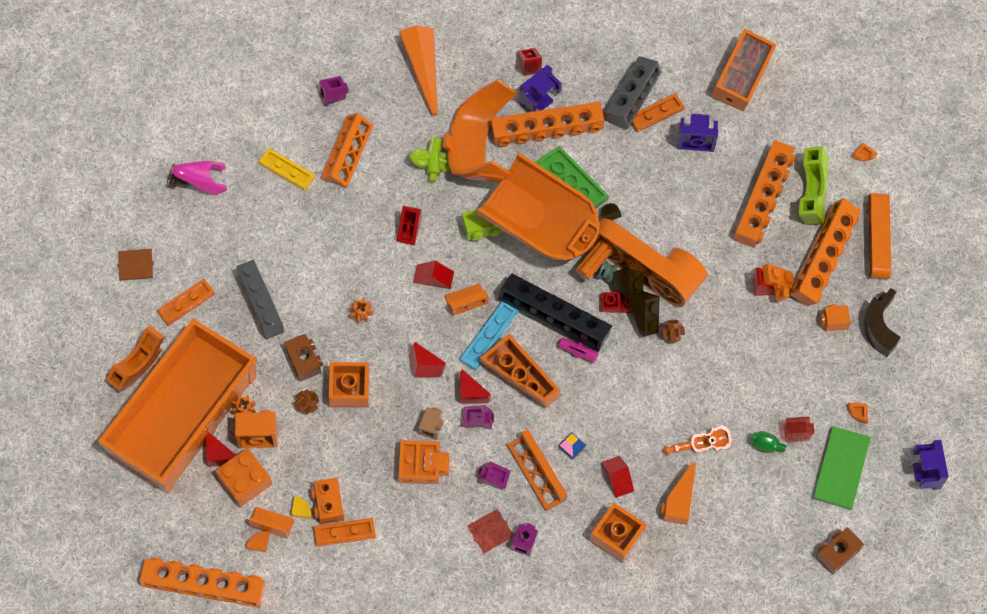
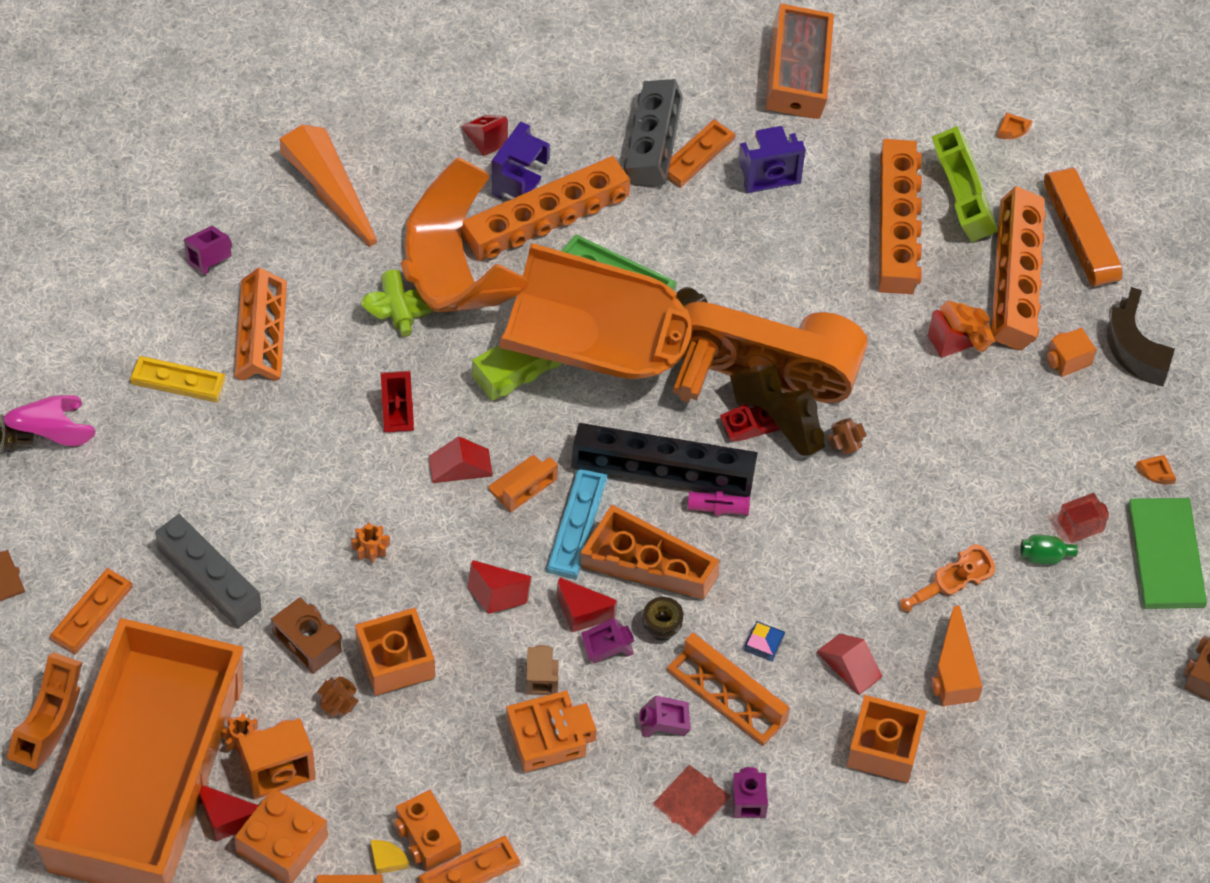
camera: 20 degrees left, 10 degrees down
(510, 408) = (672, 616): none -> dark brown piece
(609, 271) = (720, 383): sand green wheel -> none

